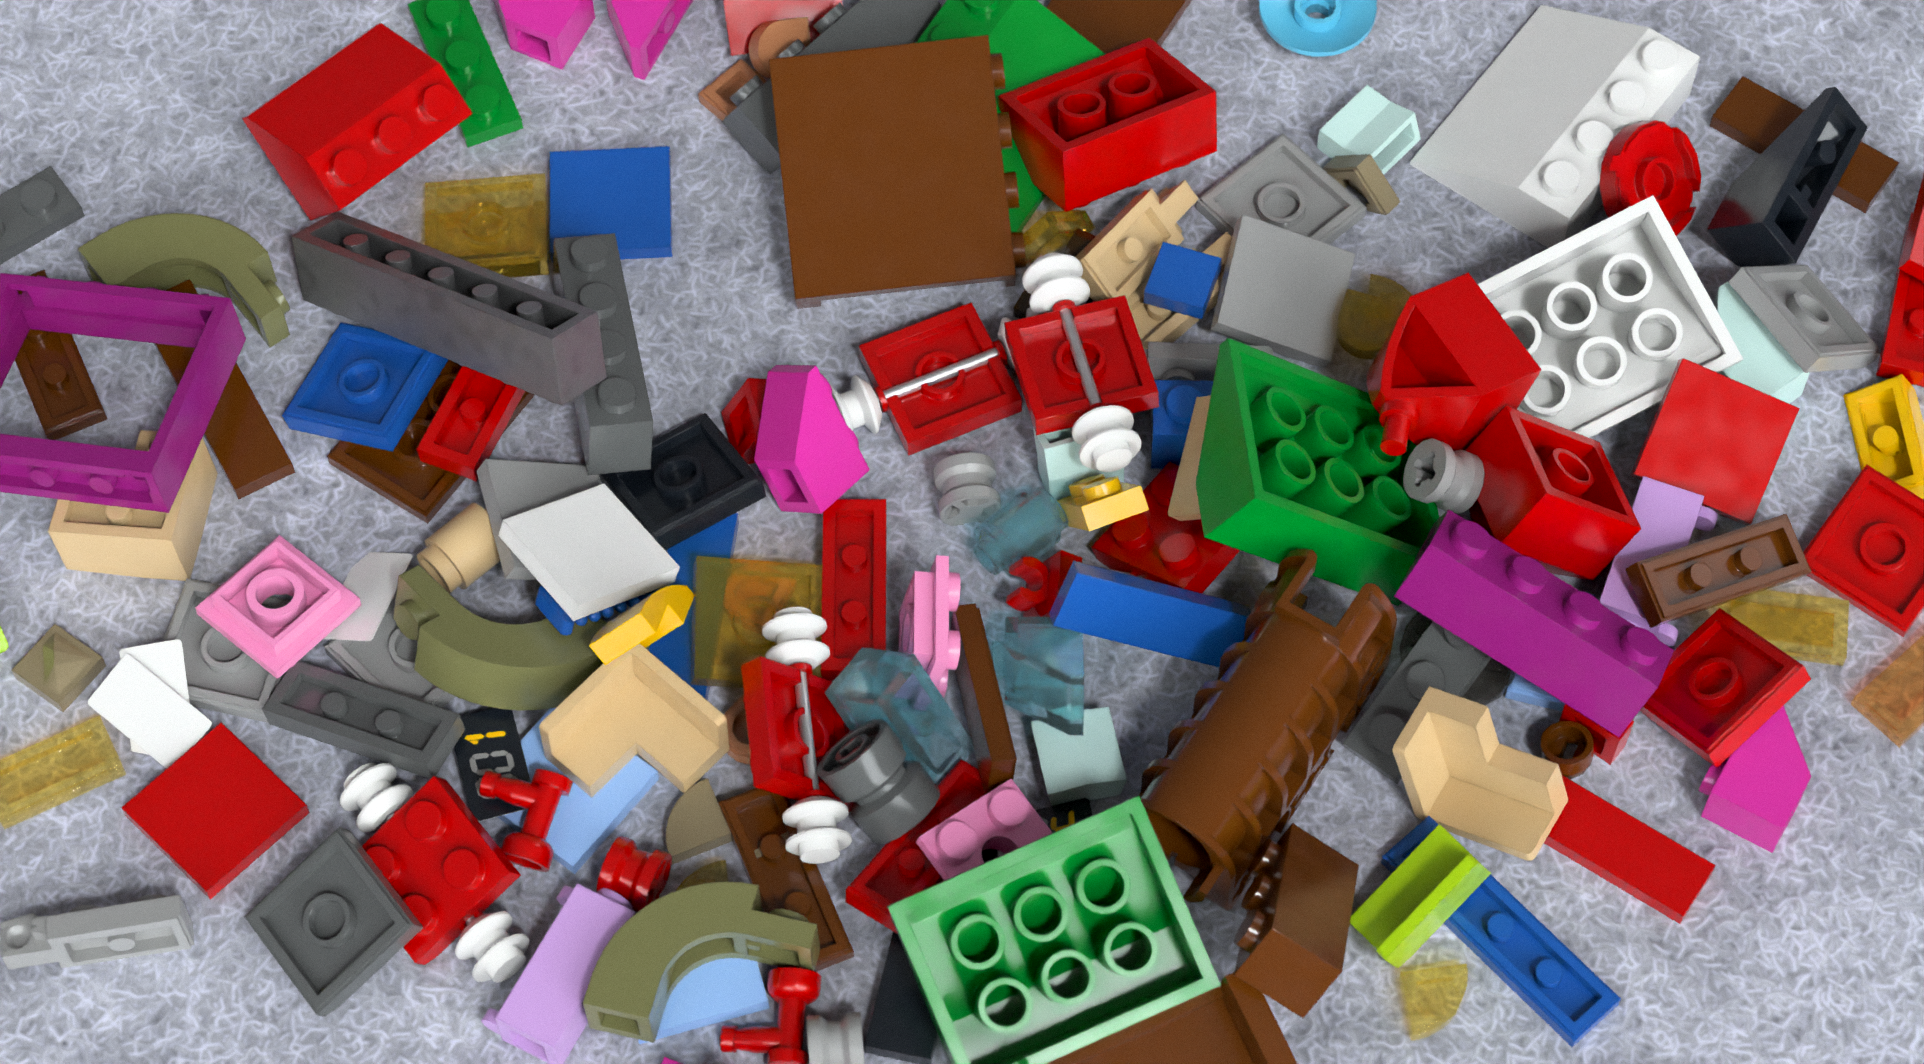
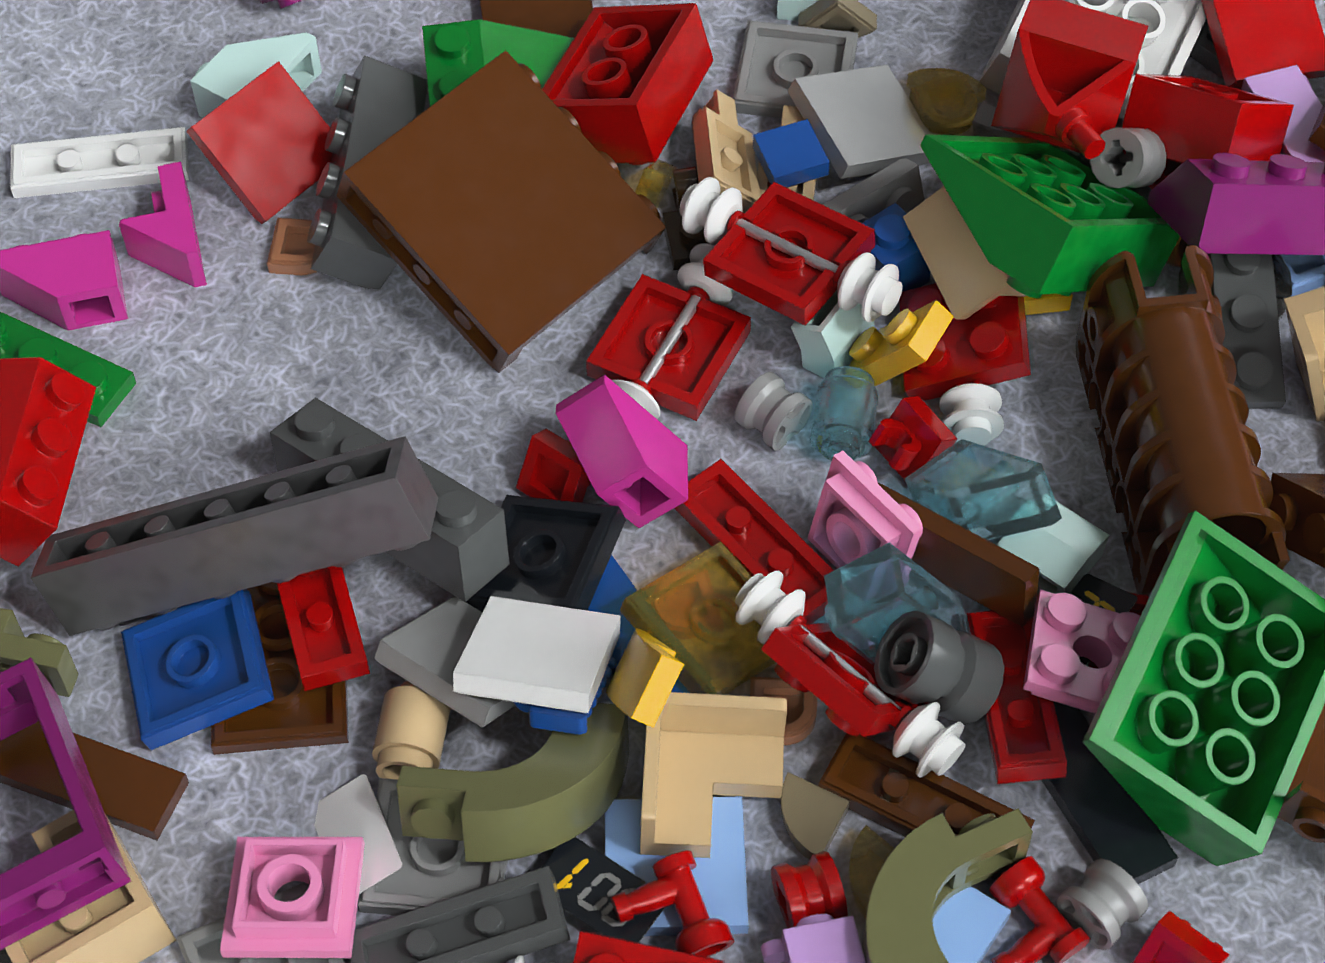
camera: 40 degrees left, 5 degrees down
(491, 222) = (178, 461): clear yellow tile -> none
(614, 193) = (264, 385): blue tile -> none
(773, 38) = (299, 185): nougat tile -> none
(1148, 614) = (1015, 399): blue tile -> none

